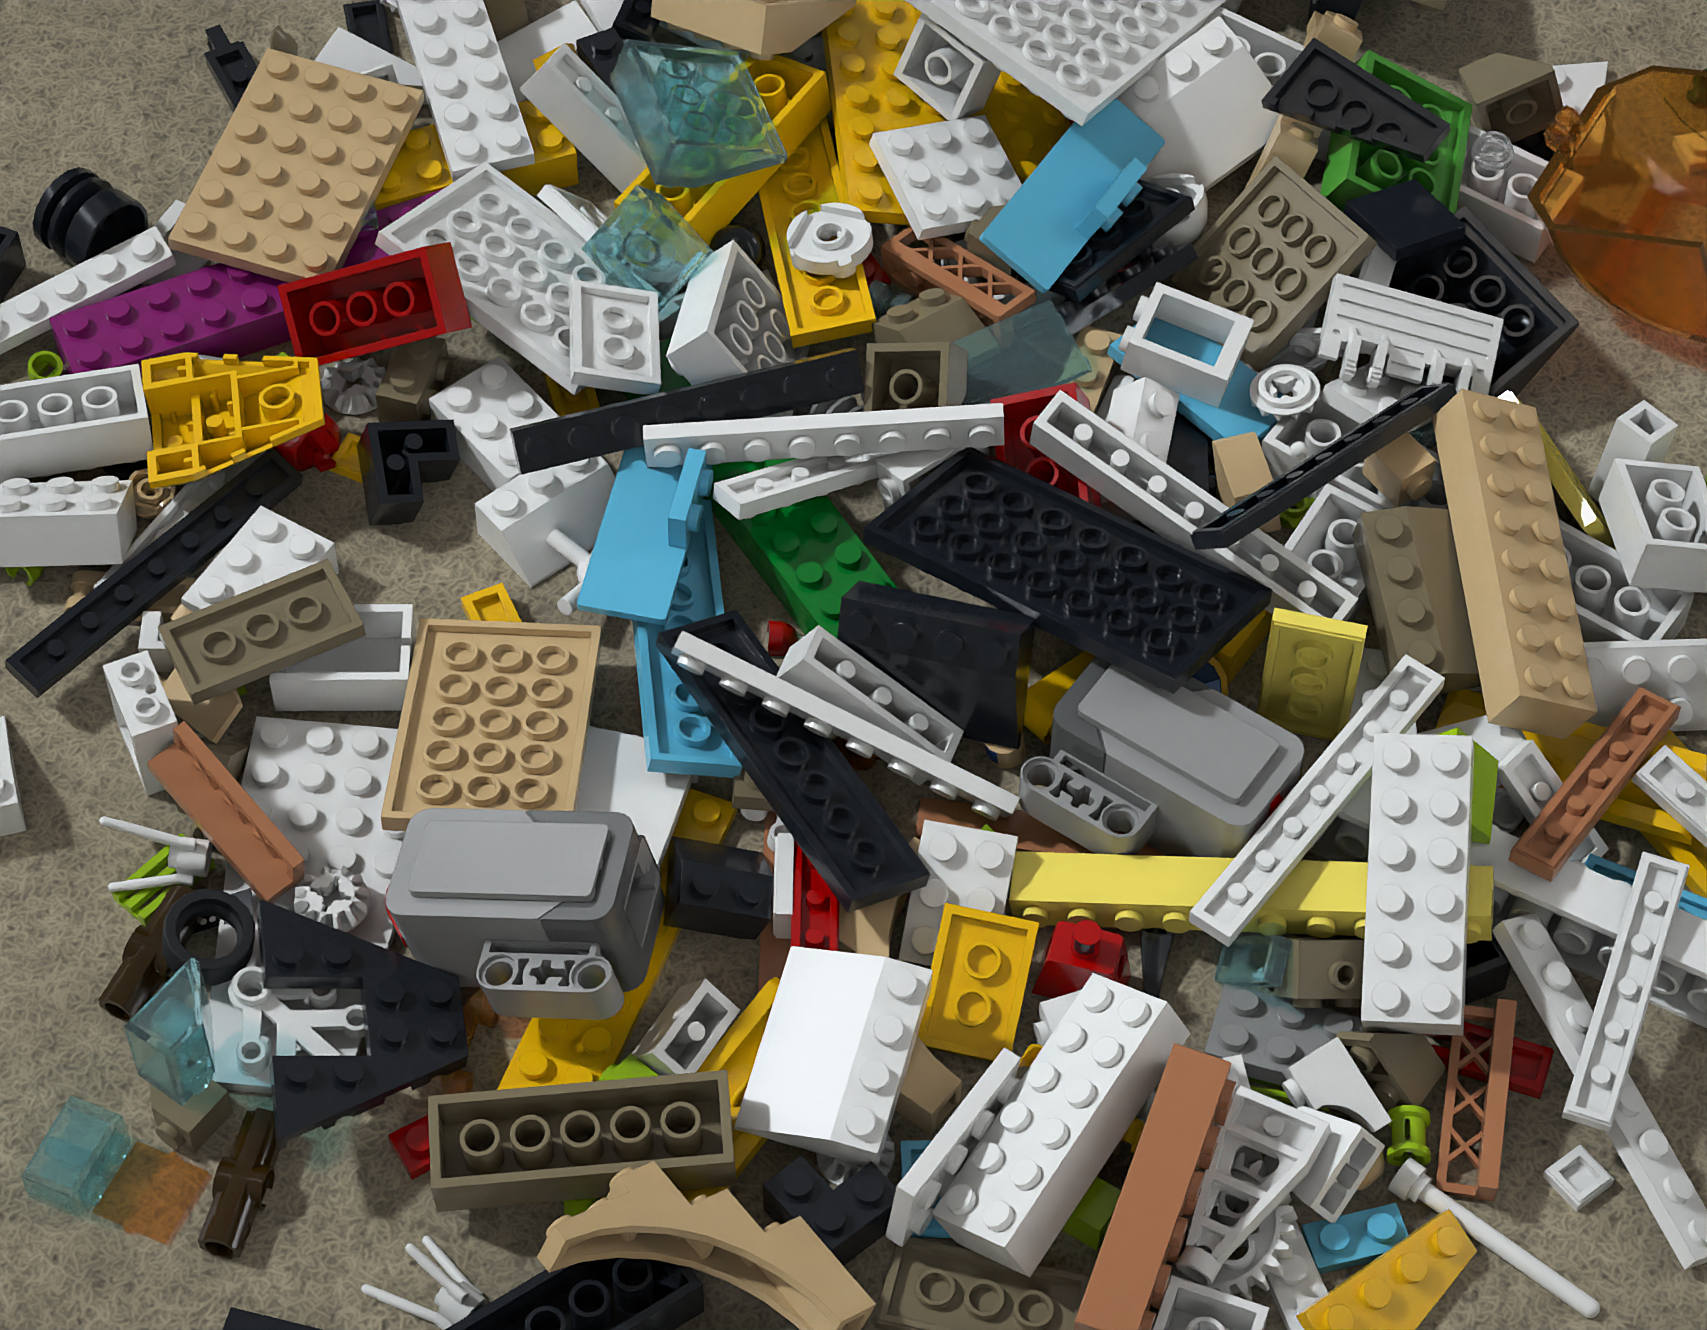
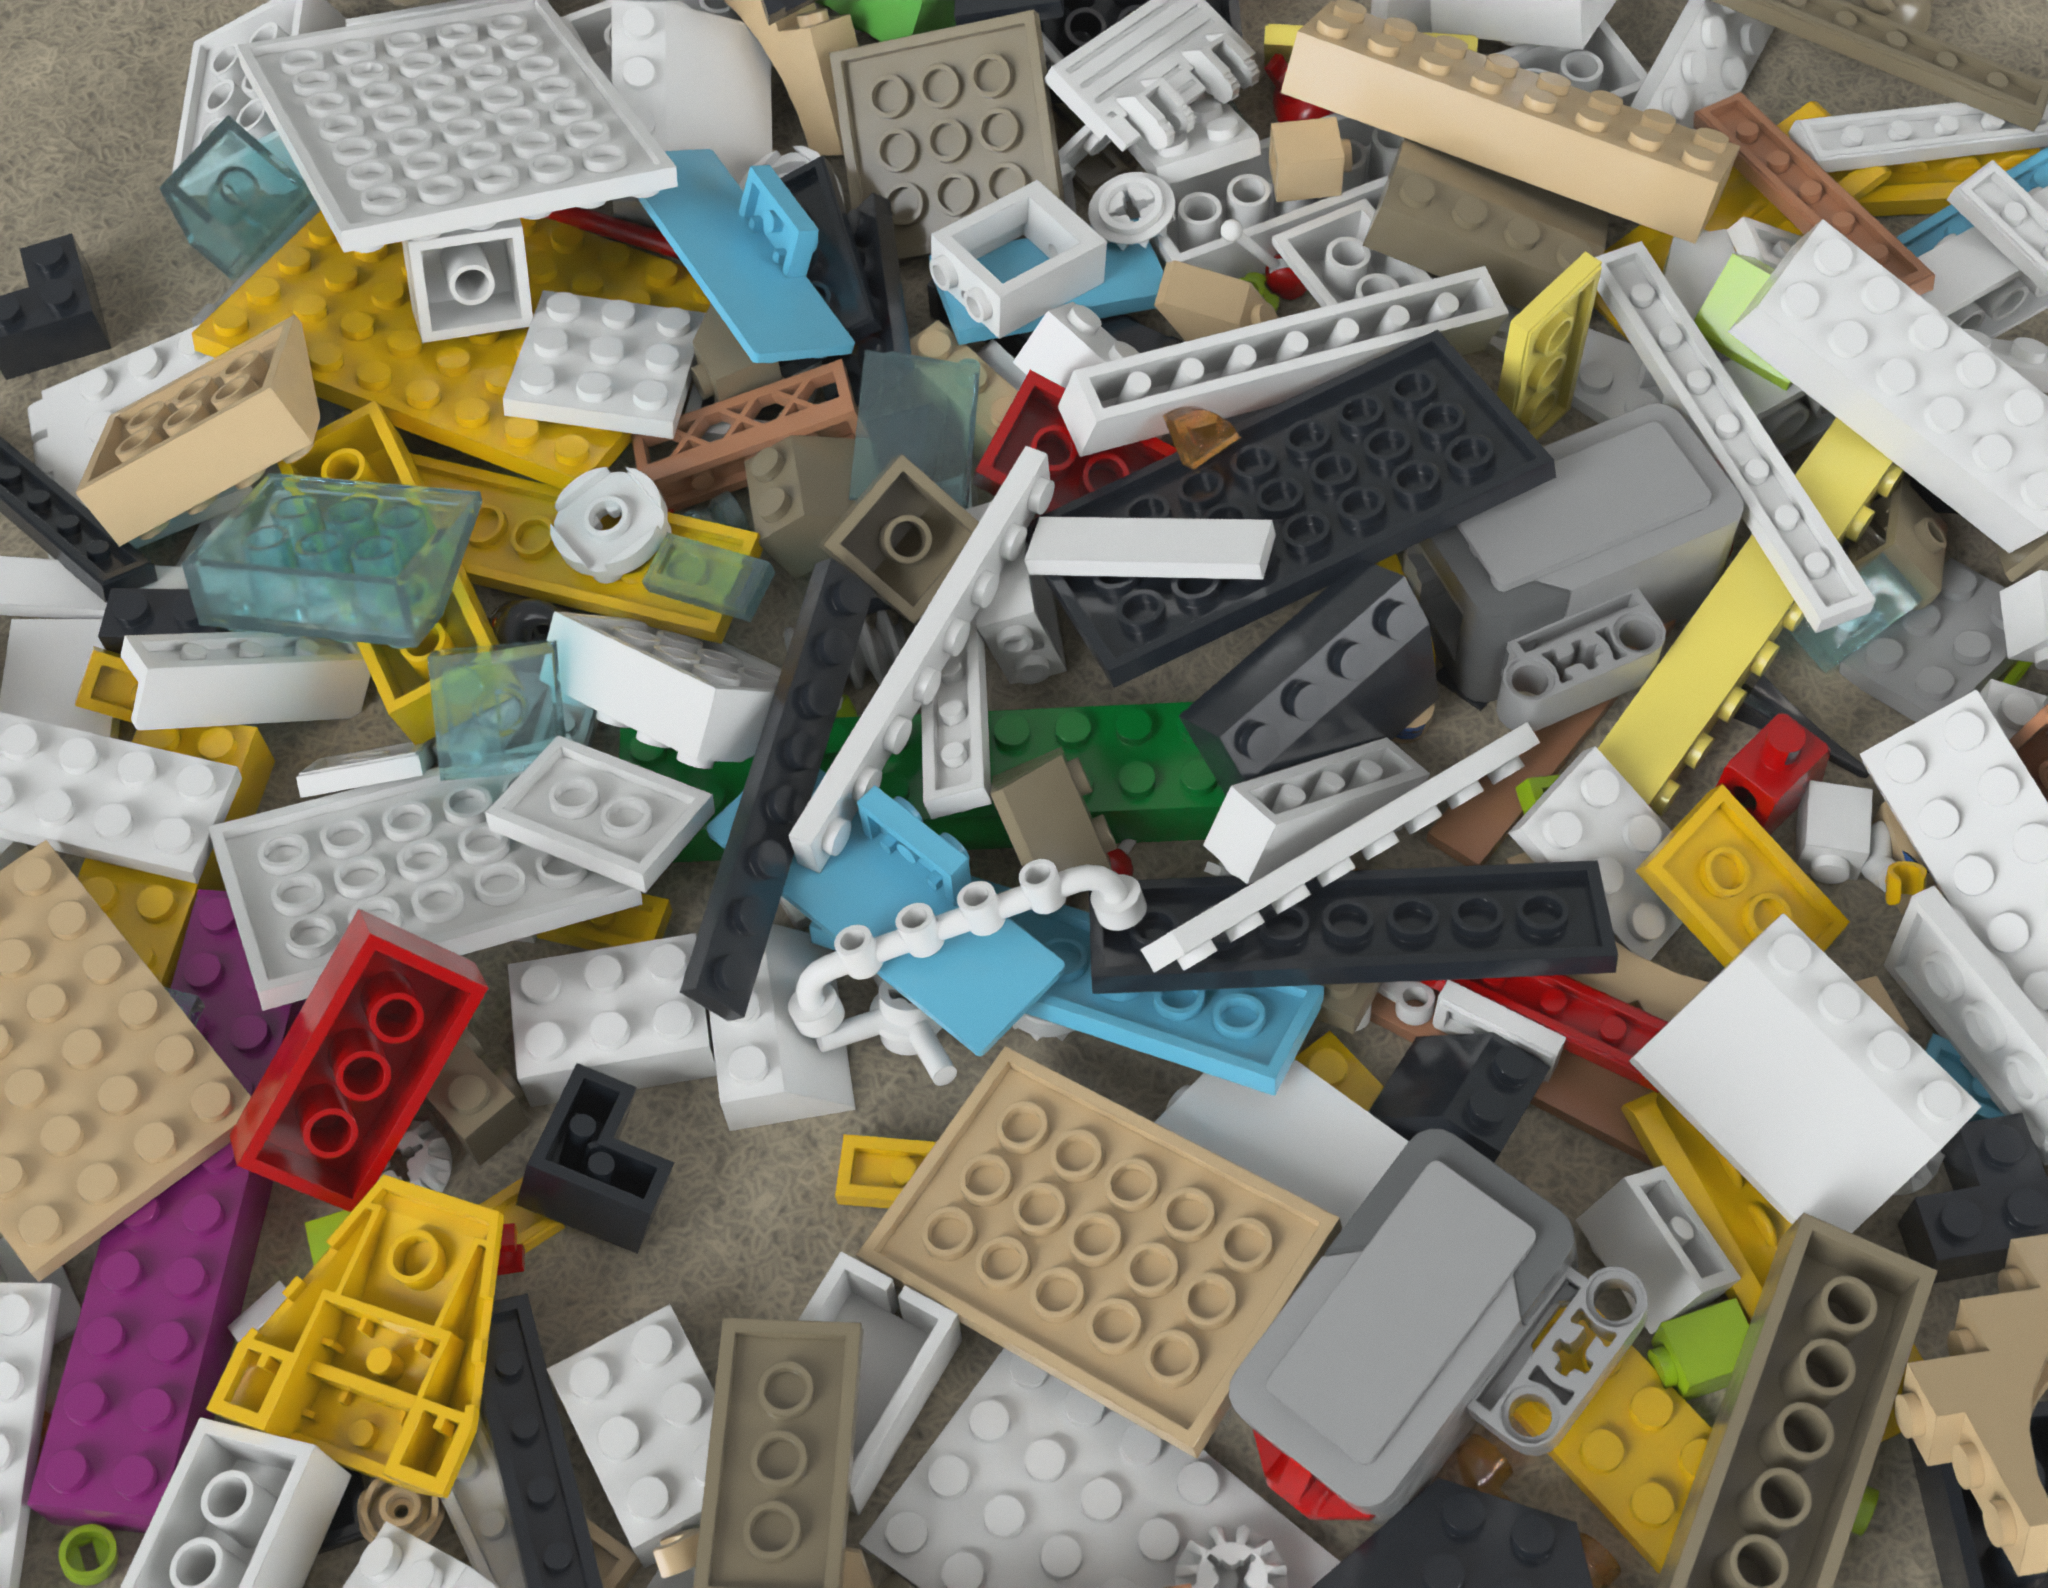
camera: 55 degrees left, 5 degrees up
(566, 520) = (1043, 889): none -> white bar
(753, 566) = (1048, 815): none -> dark tan slope
(824, 309) = (708, 577): none -> clear light blue tile
(976, 509) = (1151, 547): none -> white tile
(1088, 494) = (1198, 434): none -> clear orange tile
(1322, 467) = (1313, 207): black tile -> none

